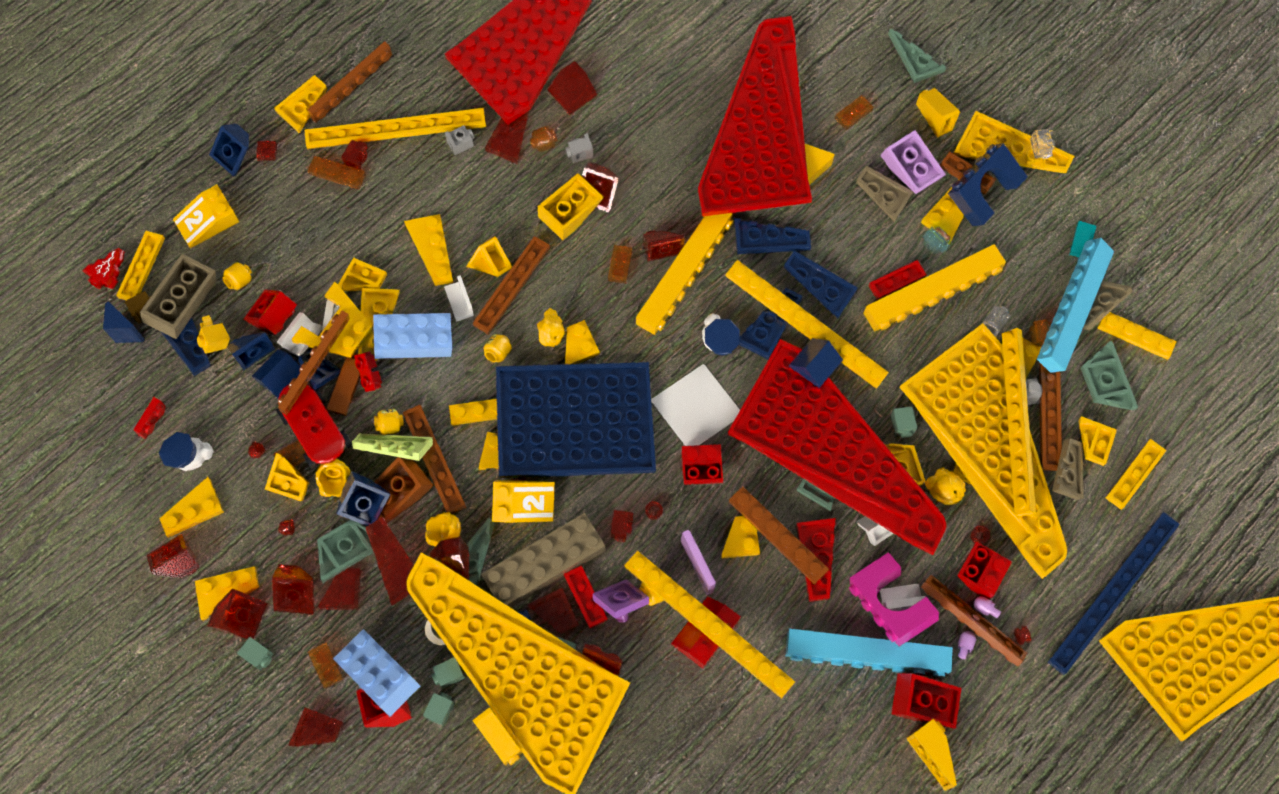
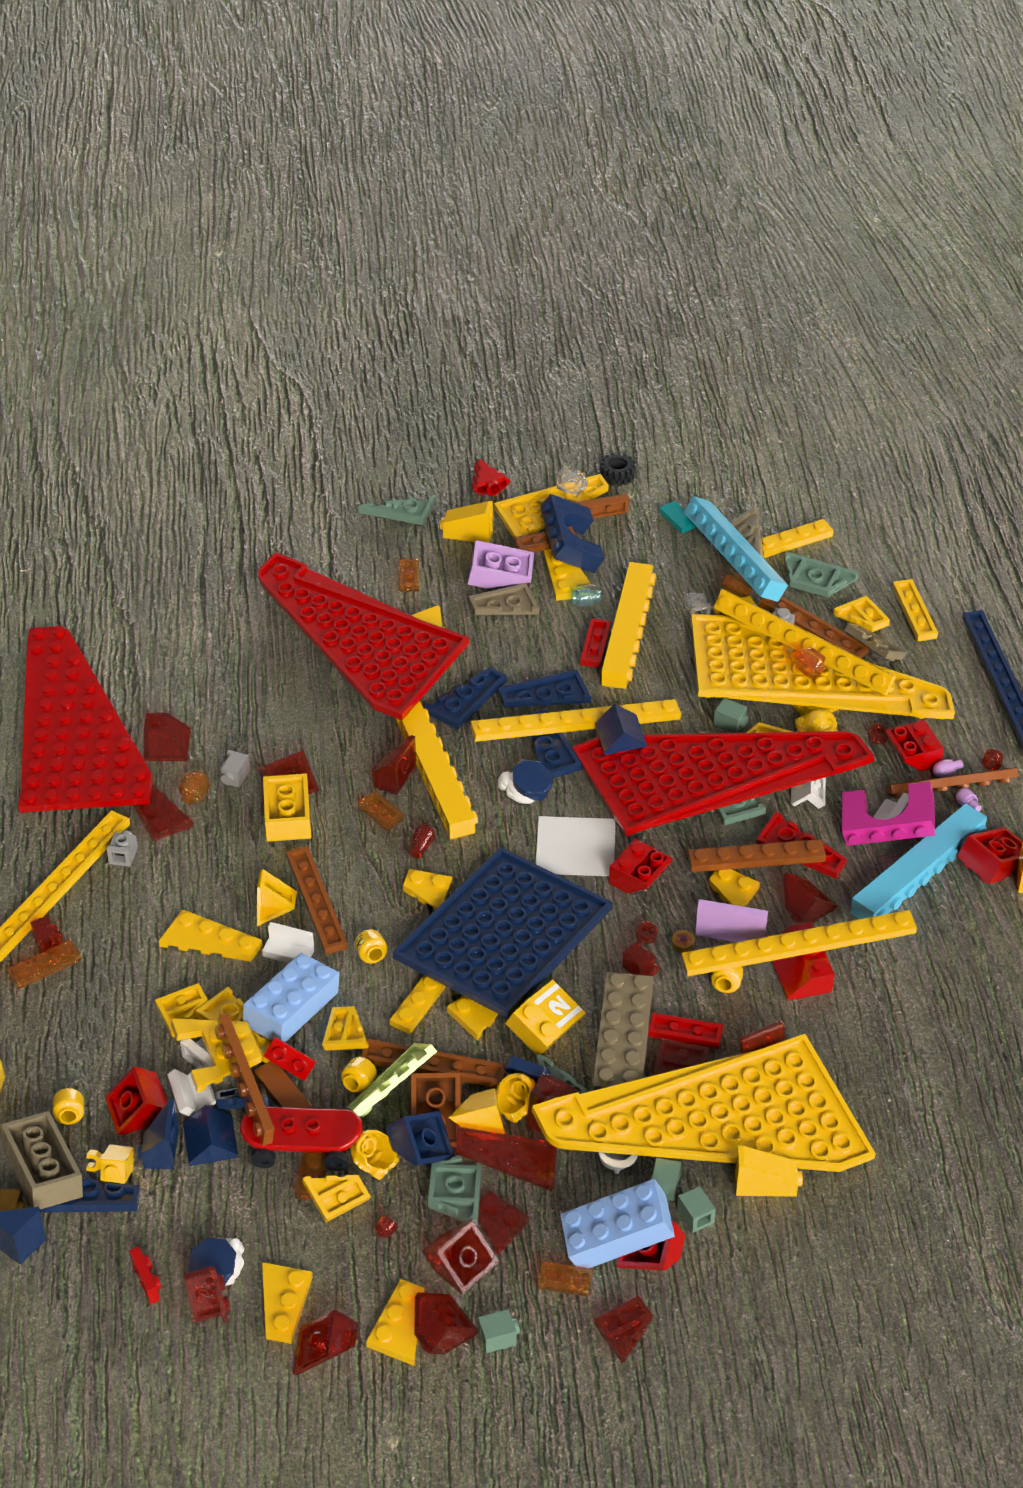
camera: 50 degrees left, 25 degrees down
(153, 466) = (205, 1294): none -> clear red bracket
(256, 450) = (276, 1205): clear red hinge -> none
(410, 519) = (480, 1112): none -> yellow slope
(417, 385) = (344, 1030): none -> yellow wing
(465, 522) = (519, 1065): none -> dark blue beam
(550, 329) = (396, 889): yellow hair -> none
(614, 309) = (422, 839): none -> clear red cone
(621, 599) = (716, 998): medium lavender tile -> none
(665, 539) = (683, 941): none -> pearl gold tile
(769, 594) = (805, 899): none -> clear red slope
(998, 88) = (488, 479): none -> red rock
(998, 441) = (810, 662): none -> clear orange head
(1042, 183) = (607, 505): none -> dark orange tile
(1097, 155) = (617, 469): none -> black tyre

